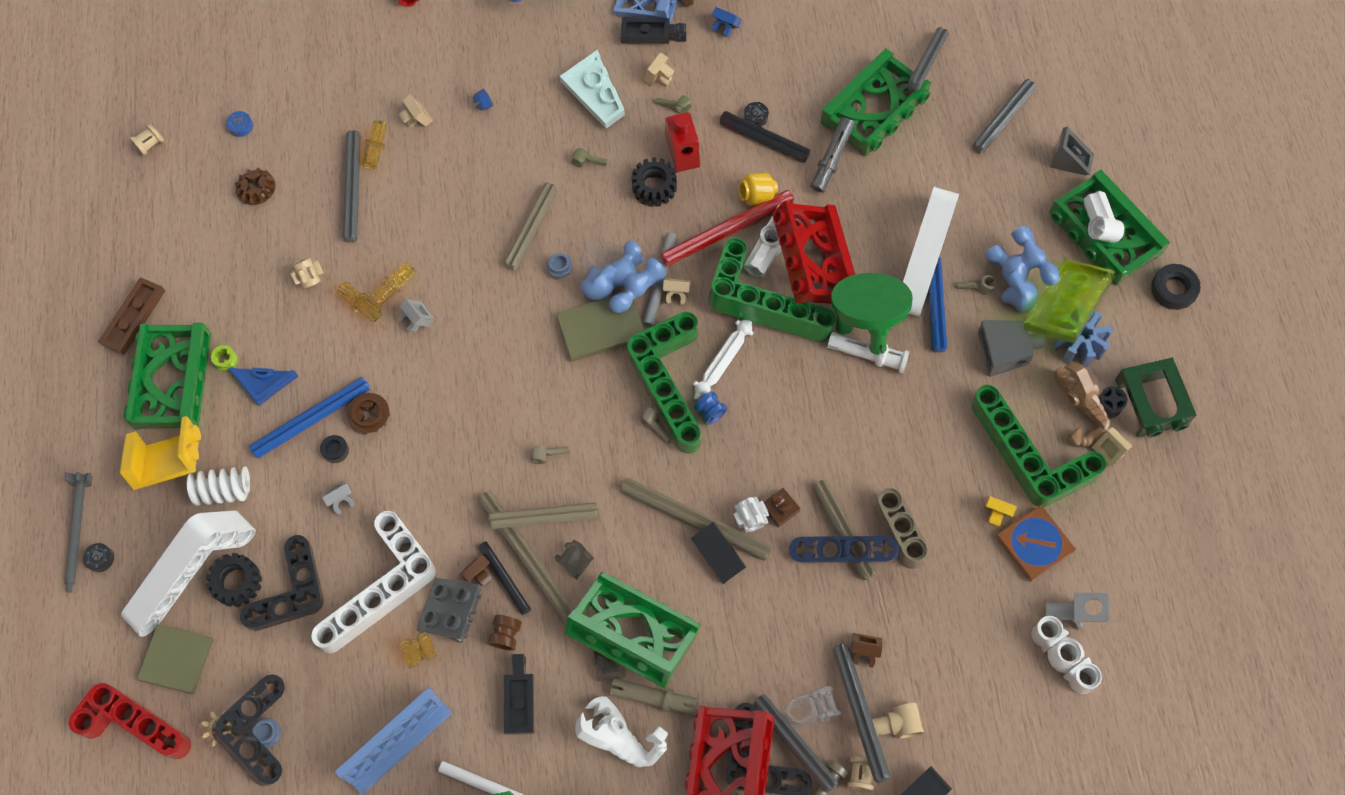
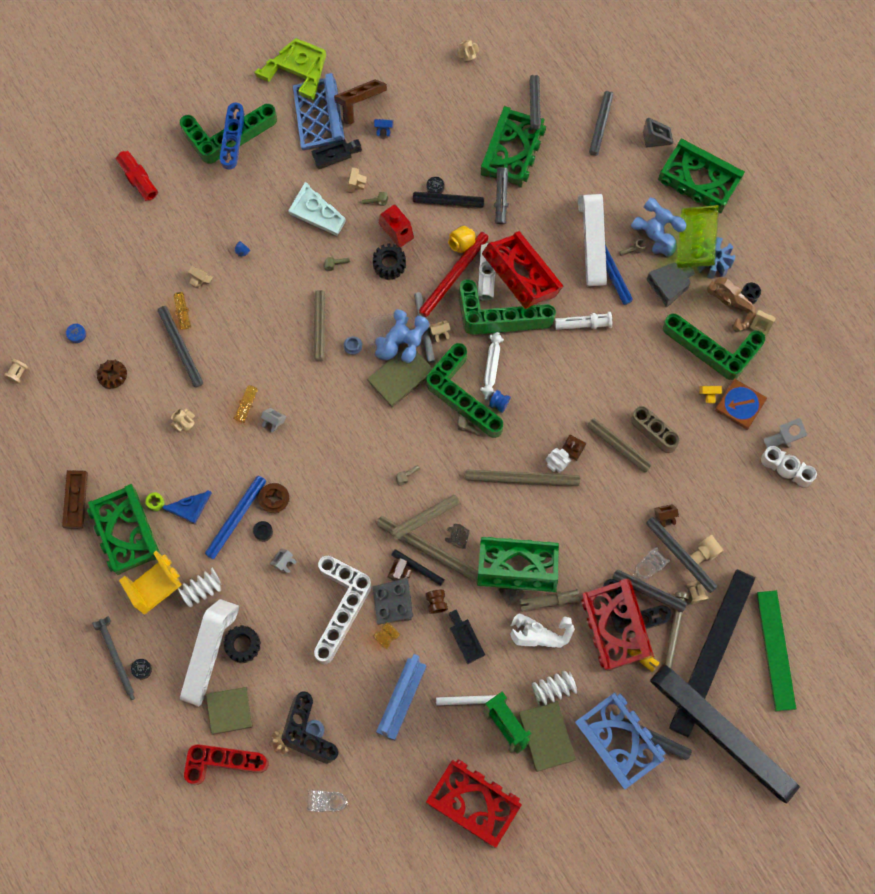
camera: 25 degrees left, 5 degrees up
(300, 590) = (288, 631): black beam -> none
(359, 302) = (229, 425): clear yellow axle -> none
(718, 552) = (548, 493): black tile -> none
(844, 545) = (625, 455): dark blue beam -> none
(871, 304) = (575, 290): green piece -> none
(1102, 221) = (698, 176): white piece -> none
(1150, 423) = (779, 297): dark green panel -> none
(1171, 300) = (766, 191): black tyre -> none

